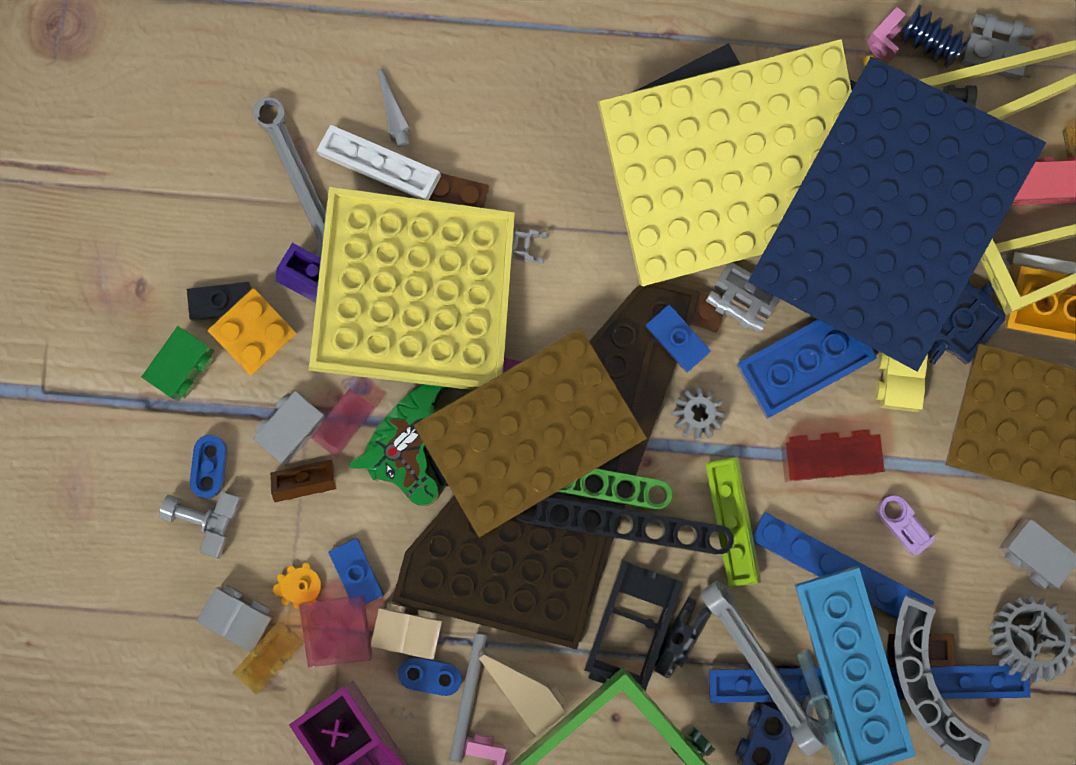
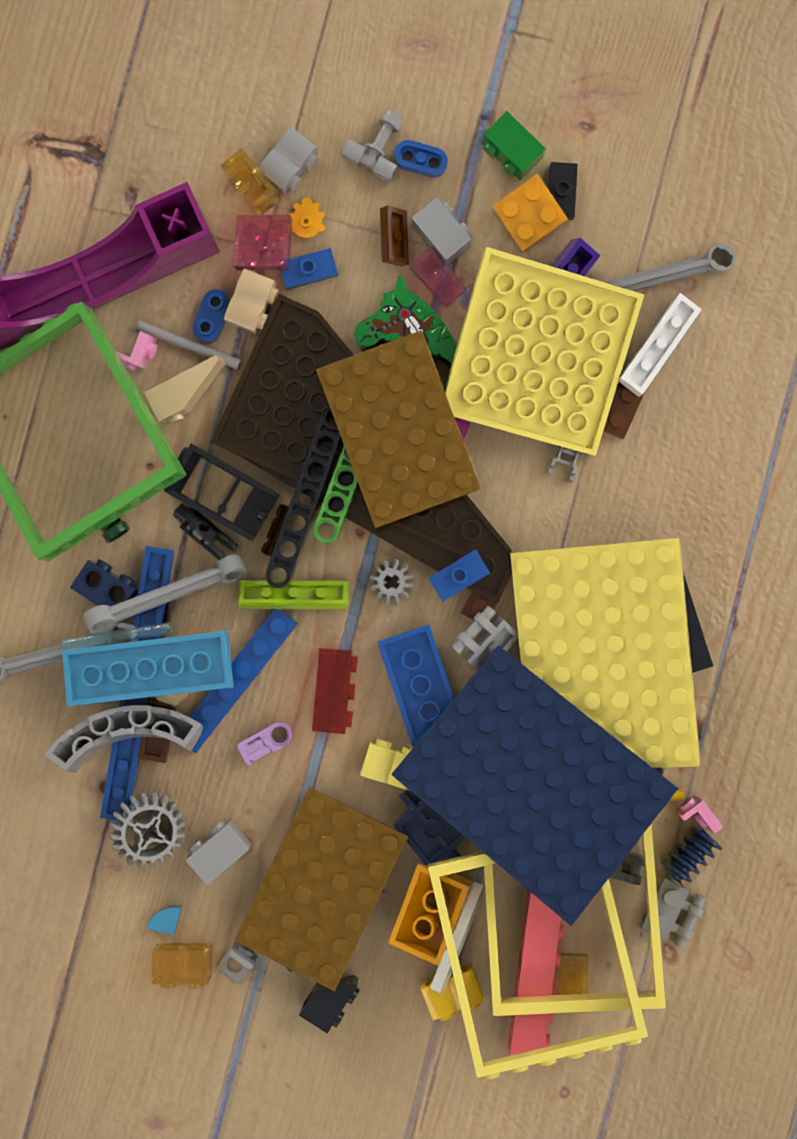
camera: 105 degrees right, 5 degrees up
(397, 124) = (694, 367): light grey piece -> none
(663, 555) = (274, 530): none -> dark brown axle

